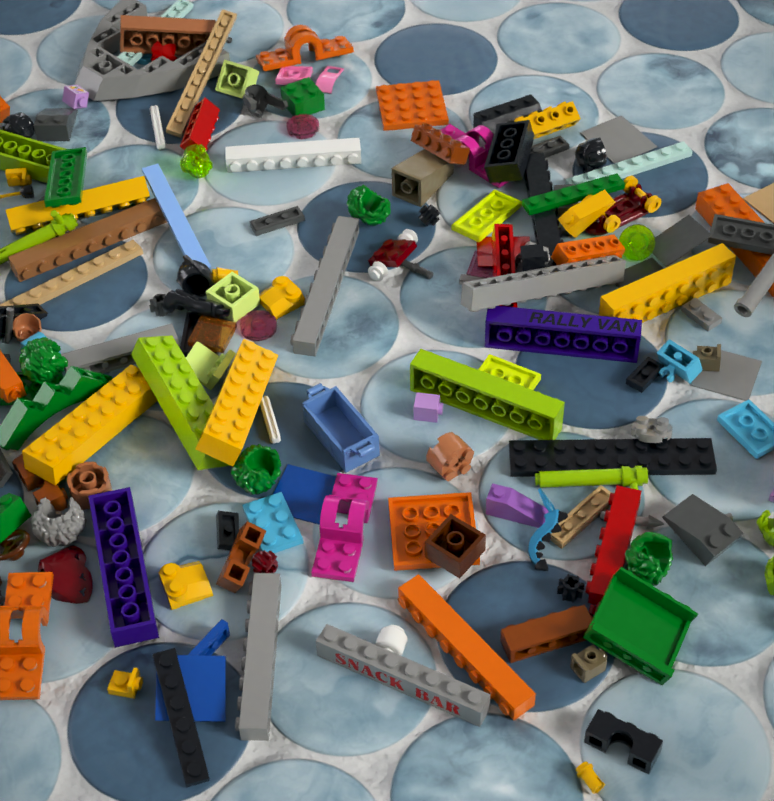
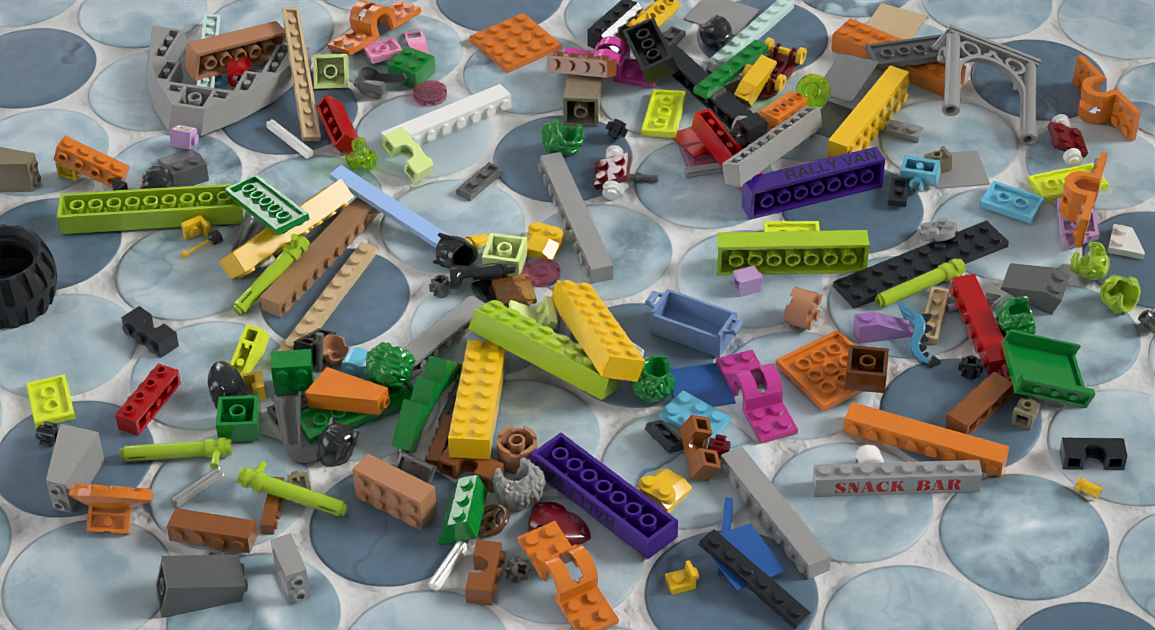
camera: 30 degrees left, 5 degrees down
(232, 187) = (400, 143): none -> yellowish green arch

